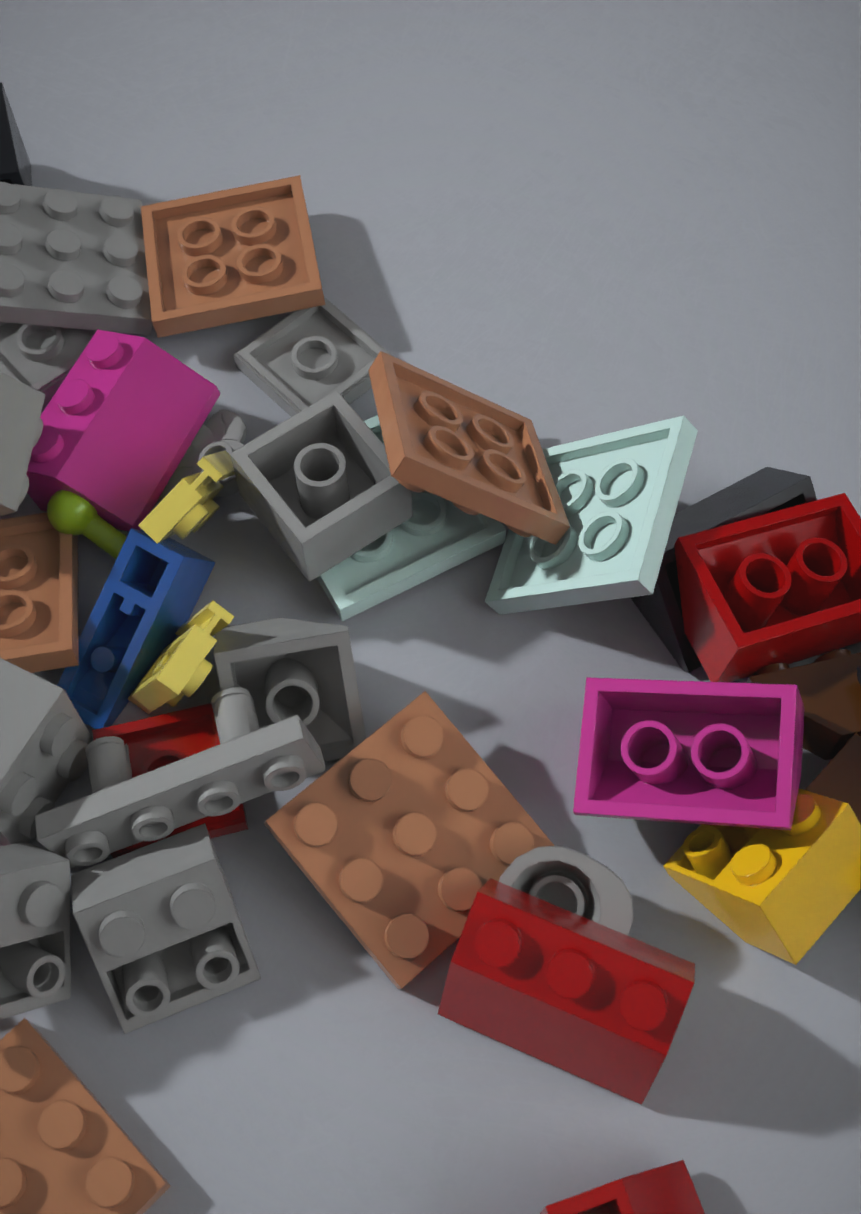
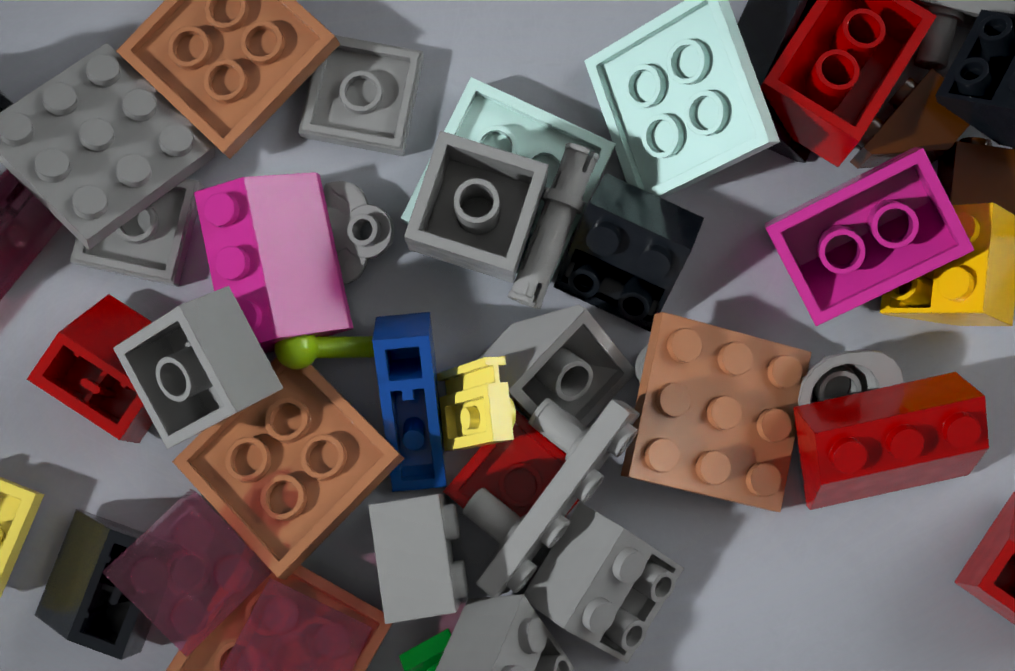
camera: 35 degrees left, 20 degrees up
(190, 501) = (386, 284): light yellow plate -> none
(406, 541) = (557, 216): none -> light grey pin
(444, 628) = (628, 251): none -> black slope
(465, 450) = (556, 108): nougat plate -> none

